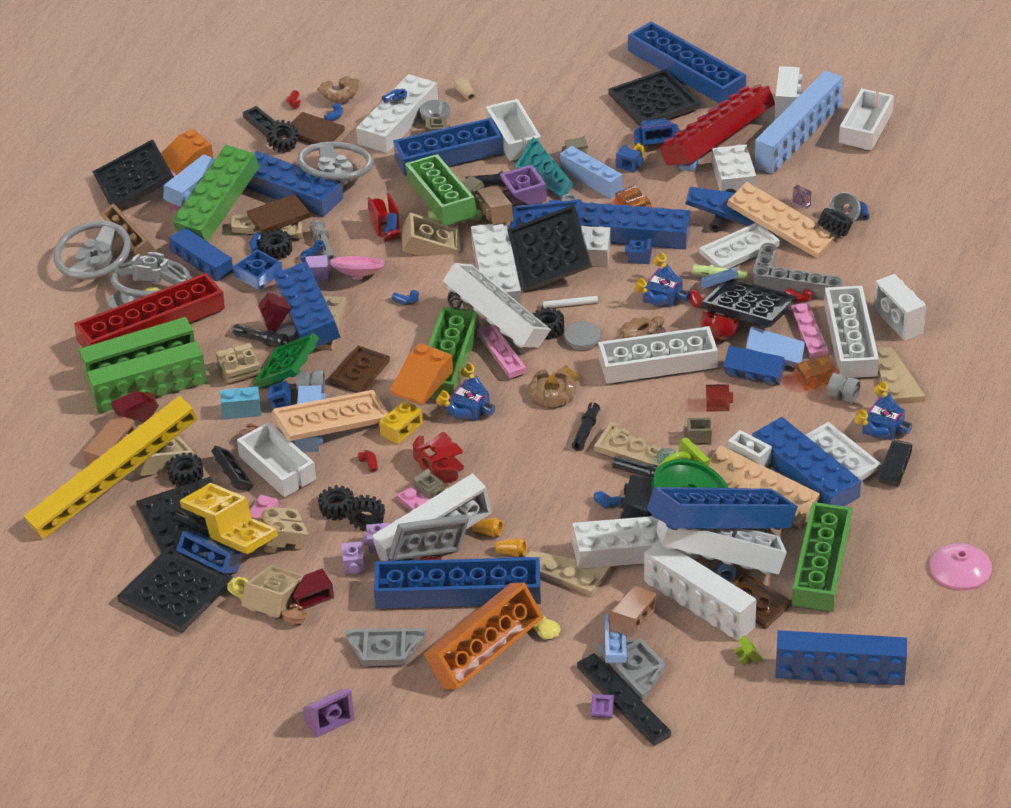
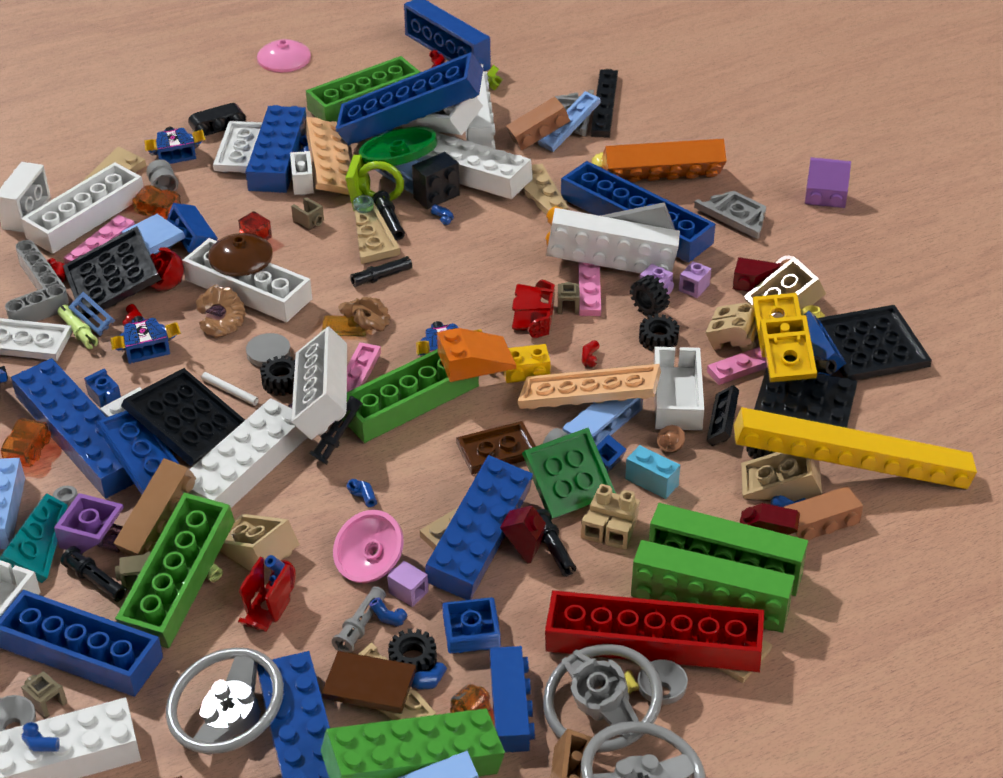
camera: 140 degrees left, 0 degrees up
(219, 238) = (470, 698): none -> clear orange head
(602, 706) = (626, 101): medium lavender tile -> none
(675, 350) = (240, 254): none -> reddish brown dish

